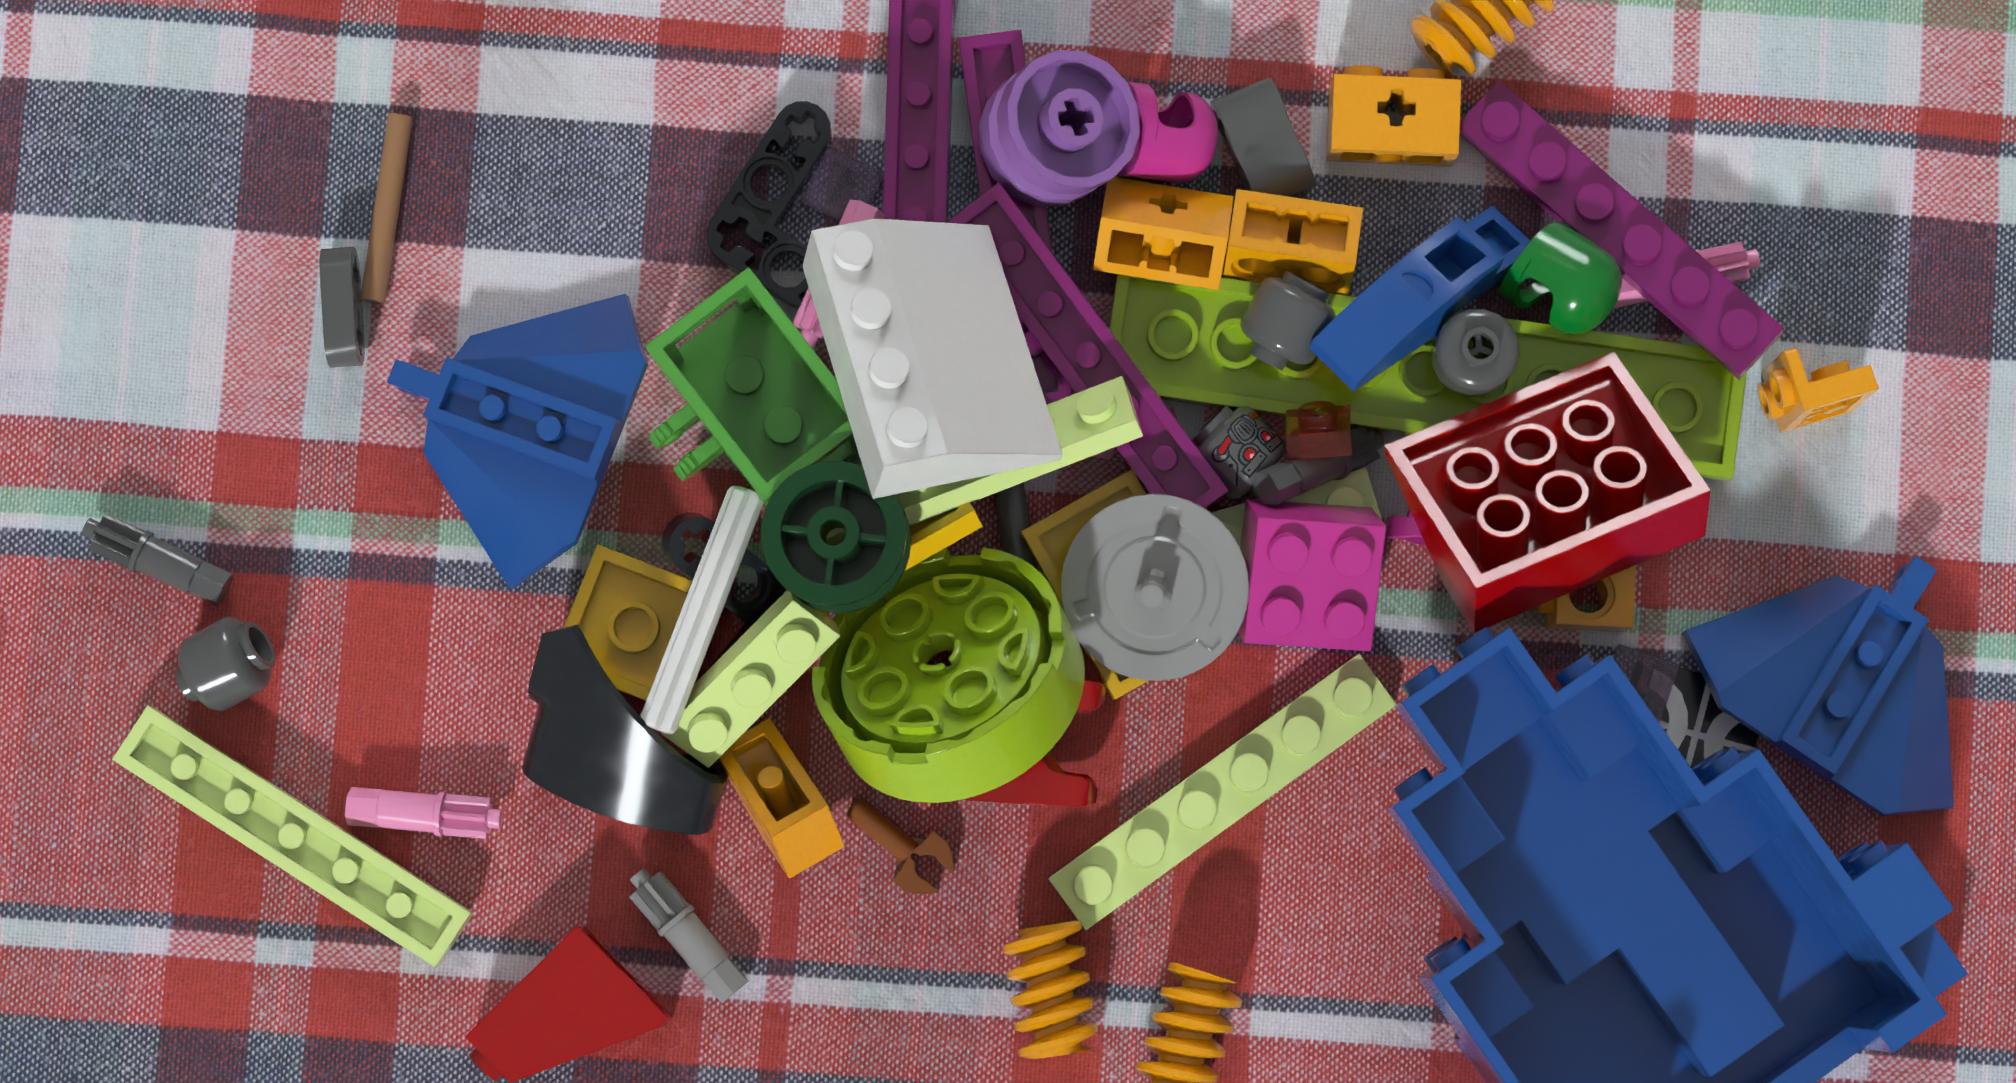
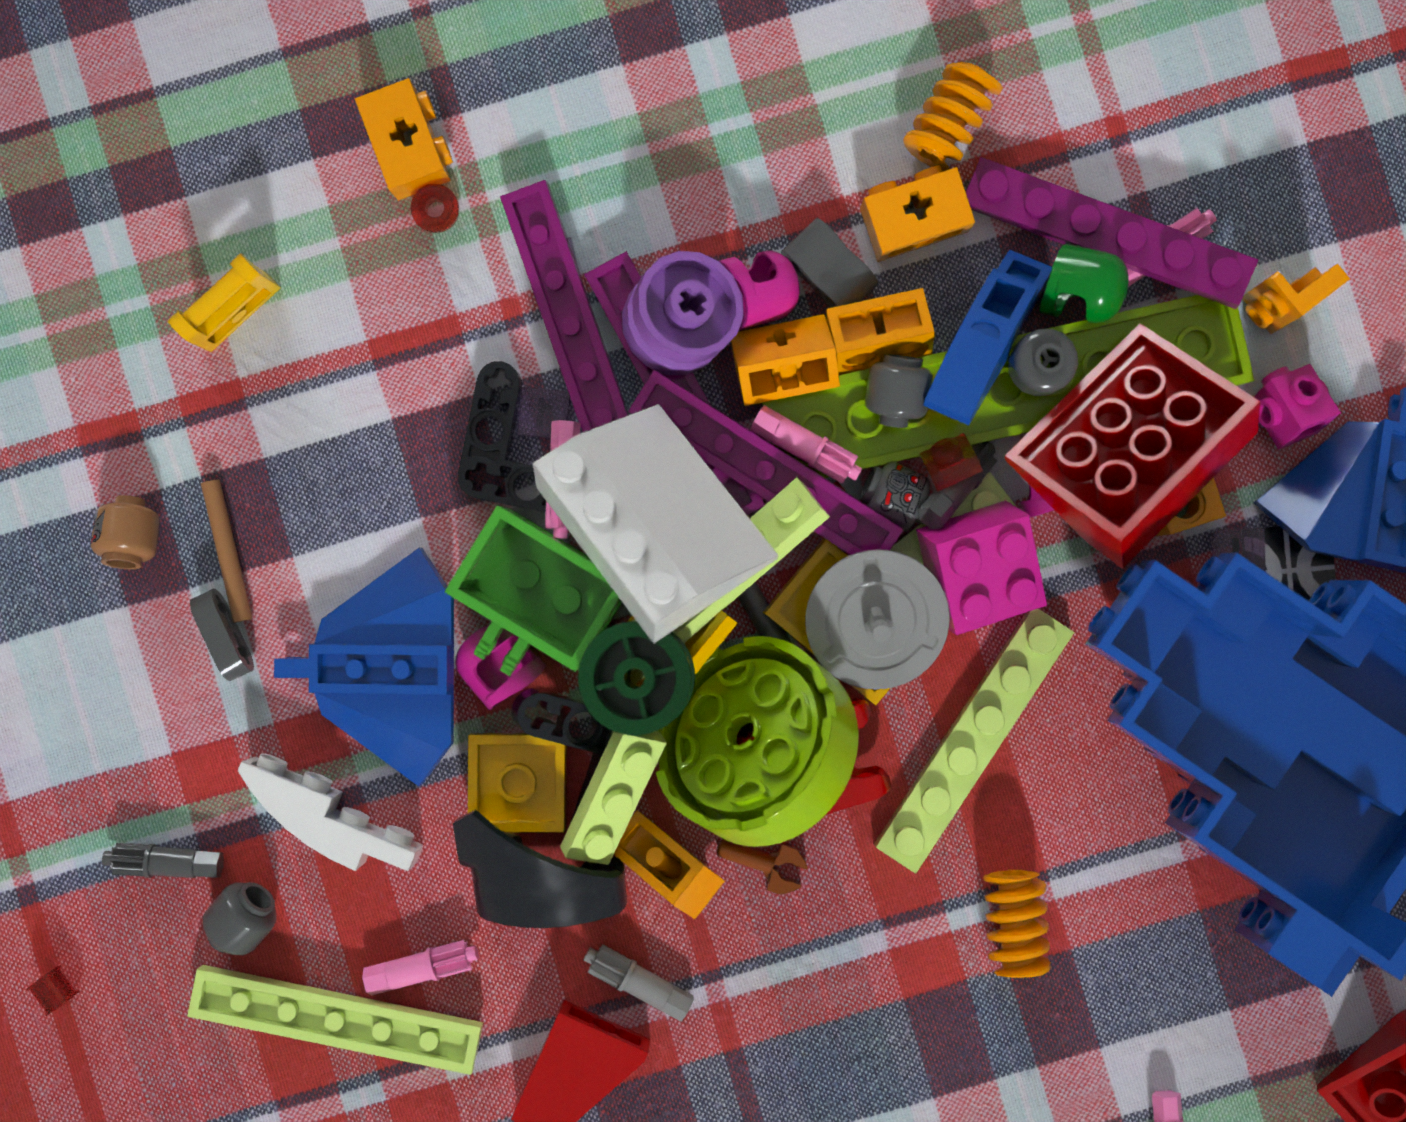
camera: 20 degrees left, 5 degrees up
(274, 138) = (125, 533): none -> medium nougat head
(364, 564) = (309, 812): none -> white slope
(649, 475) = (485, 675): none -> dark pink helmet
(702, 609) = (560, 762): white axle -> none
(1050, 990) = (910, 925): light orange piece -> none
(1150, 345) = (806, 445): none -> bright pink piece
(1769, 525) = (1294, 405): none -> dark pink brick

